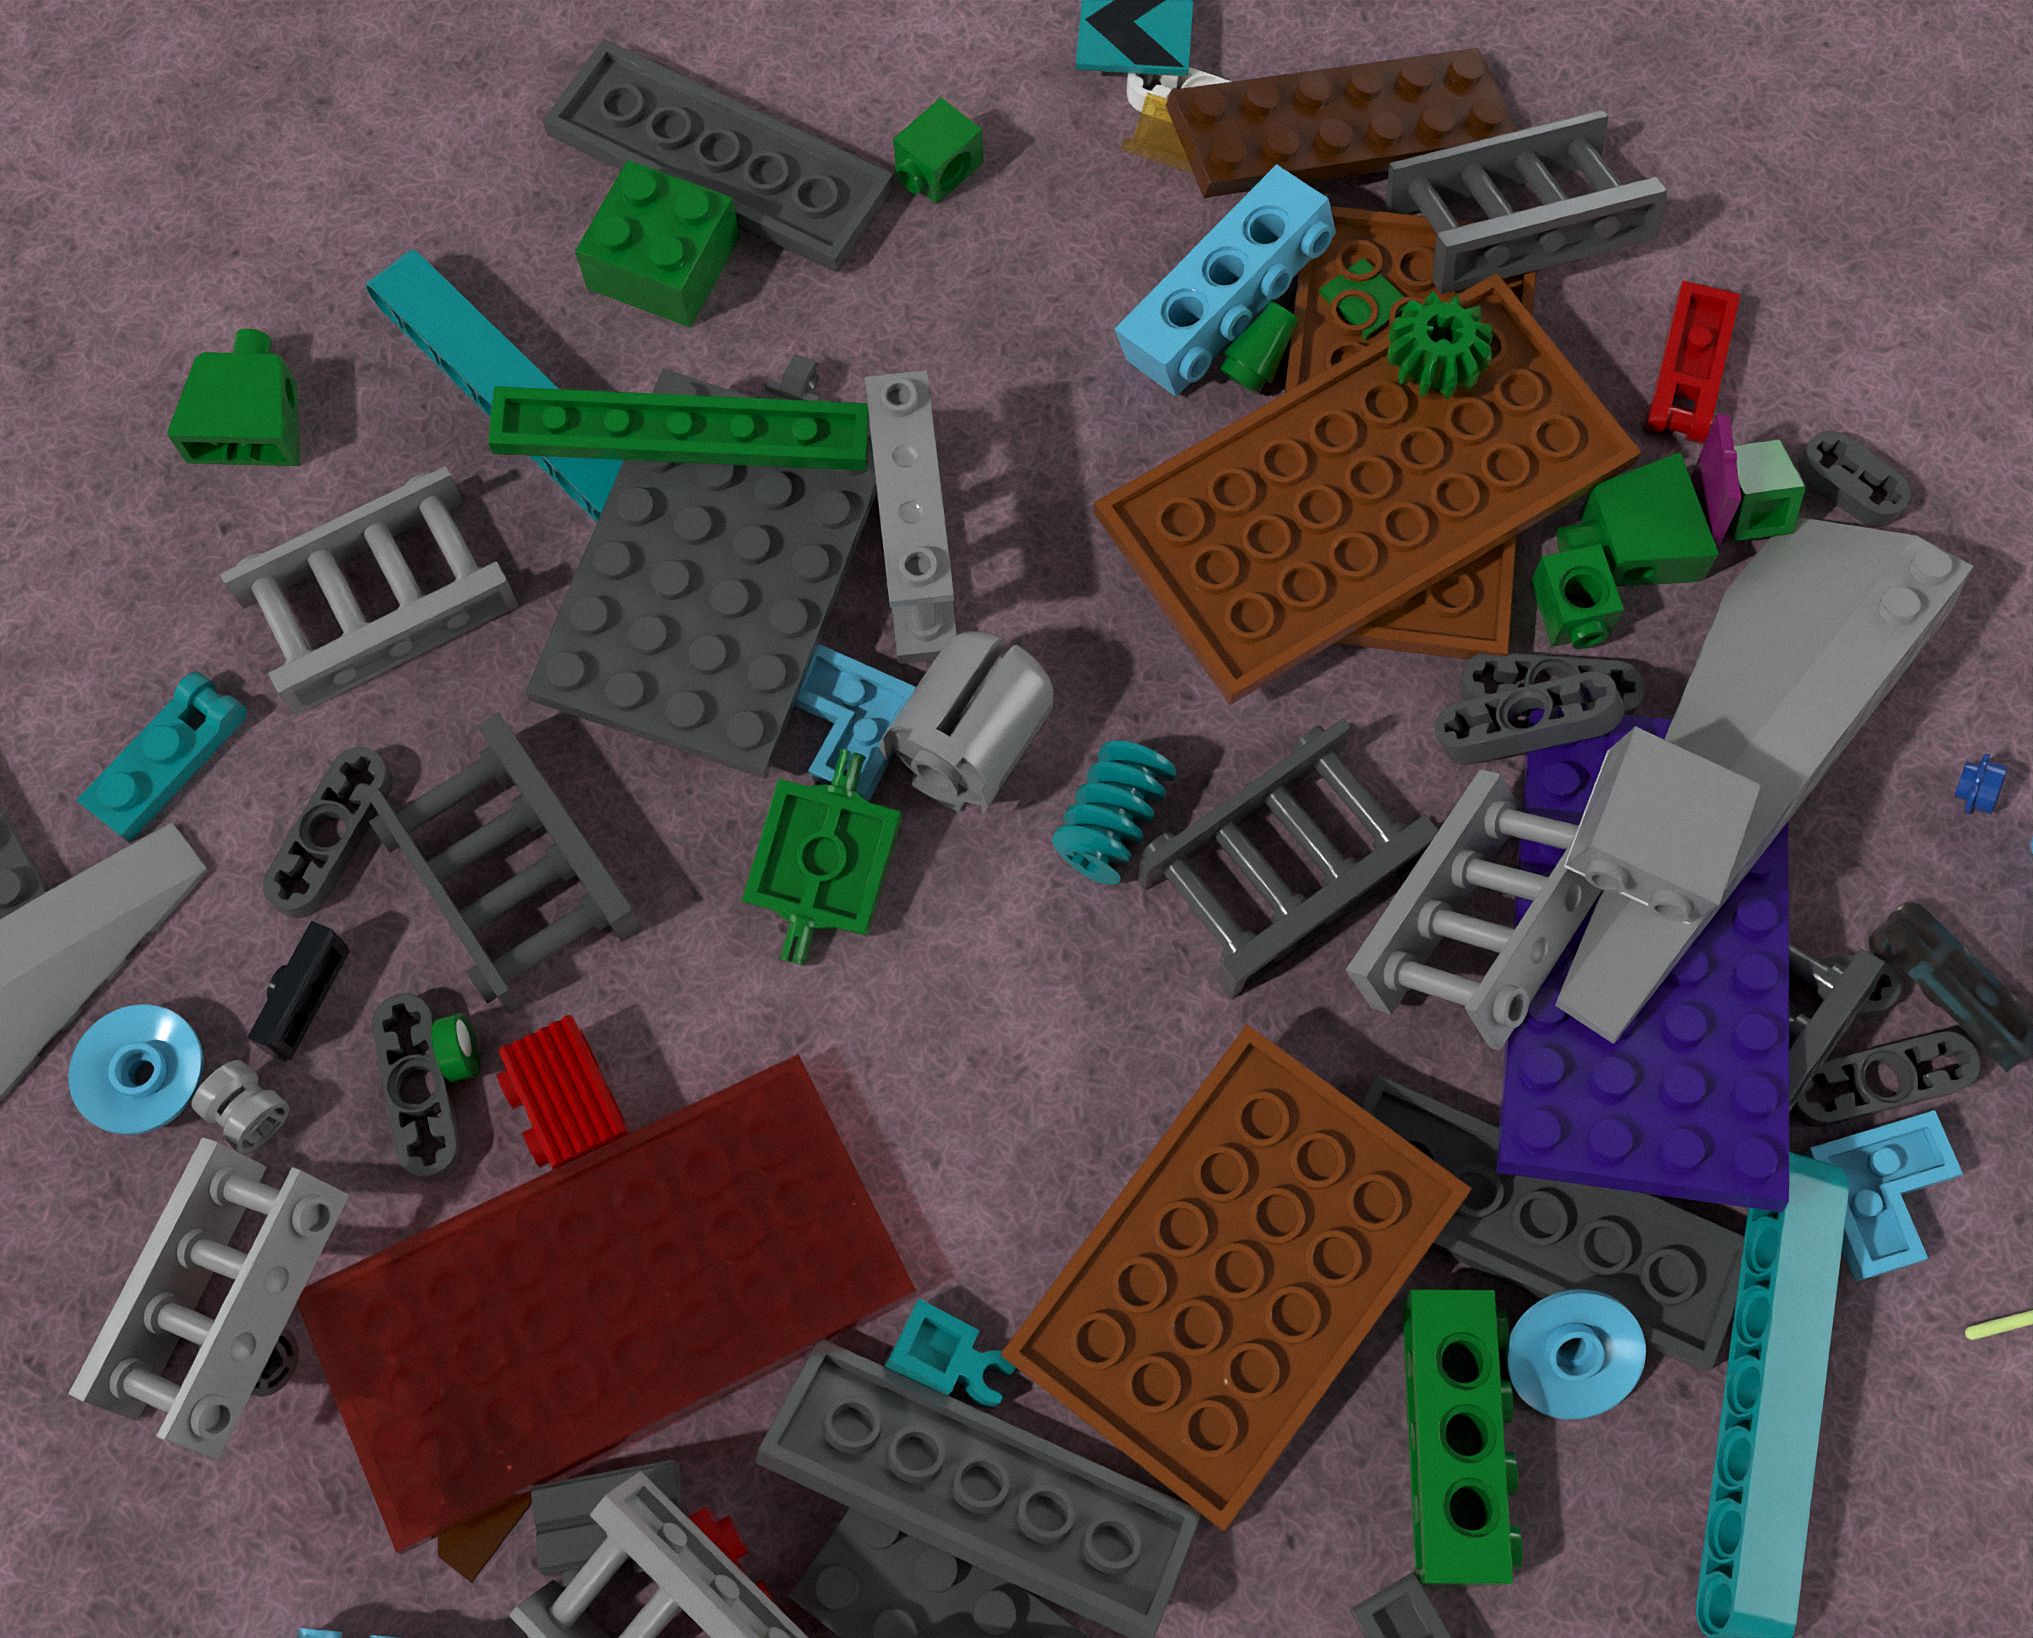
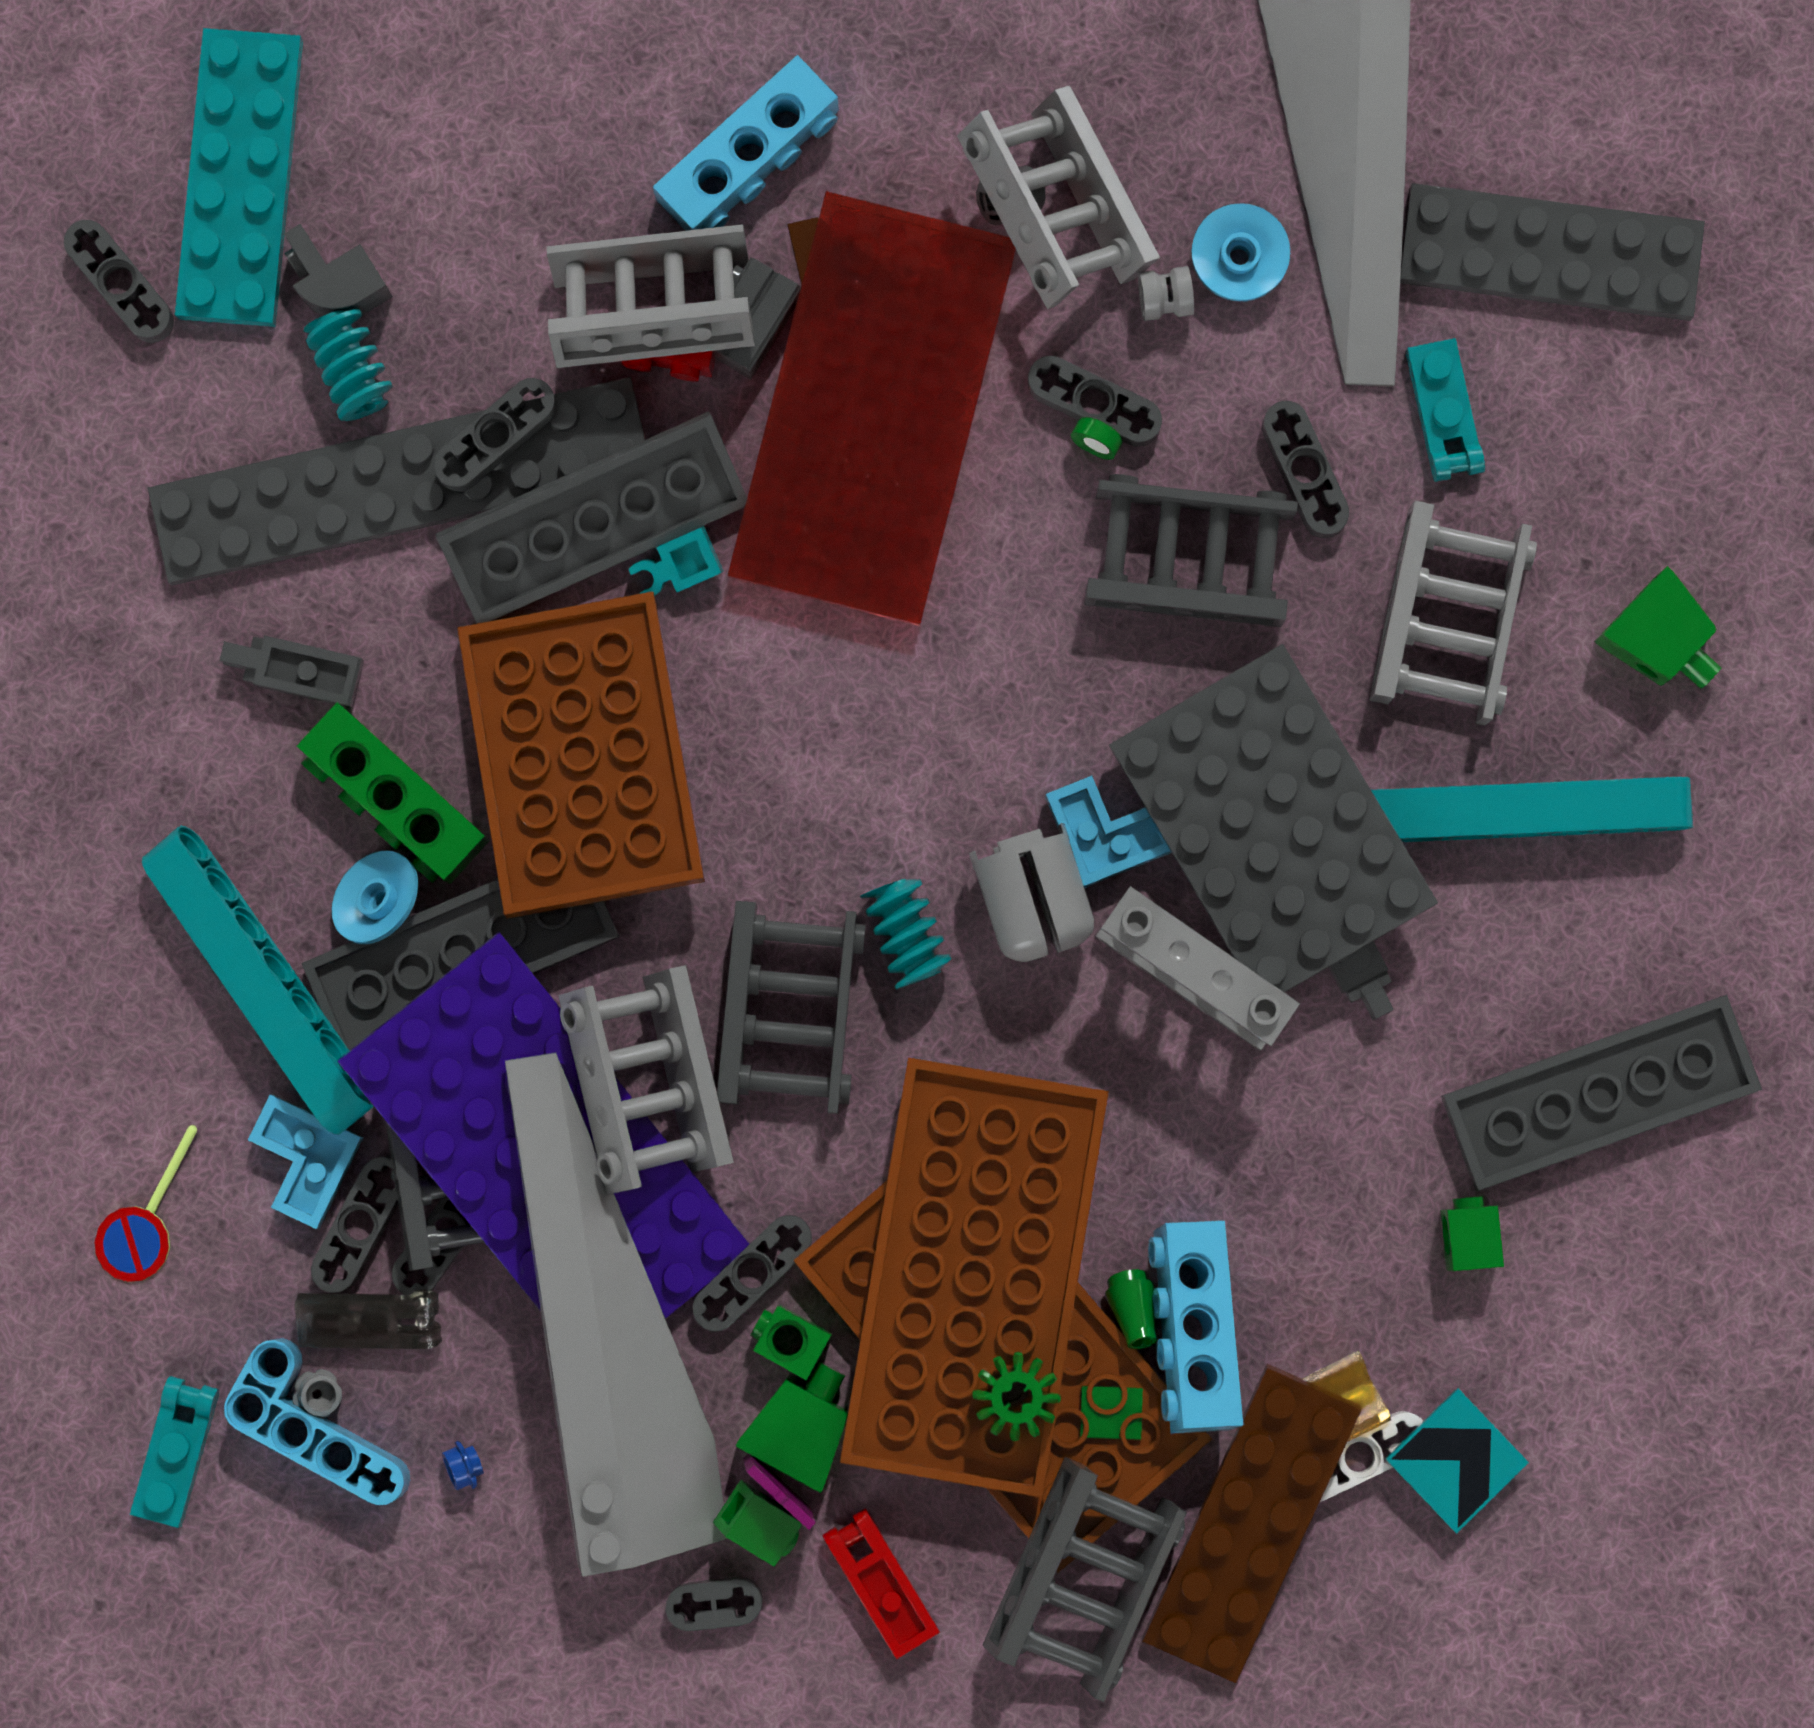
camera: 130 degrees right, 15 degrees up
(298, 991) = (1210, 375): black plate -> none
(561, 1092) = (1011, 474): red brick -> none
(658, 243) = (1556, 991): green brick -> none
(679, 428) = (1372, 868): green plate -> none
(822, 857) = (1028, 737): green plate -> none
(1550, 731) = (719, 1233): dark grey beam -> none
(1662, 827) = (587, 1187): light grey piece -> none

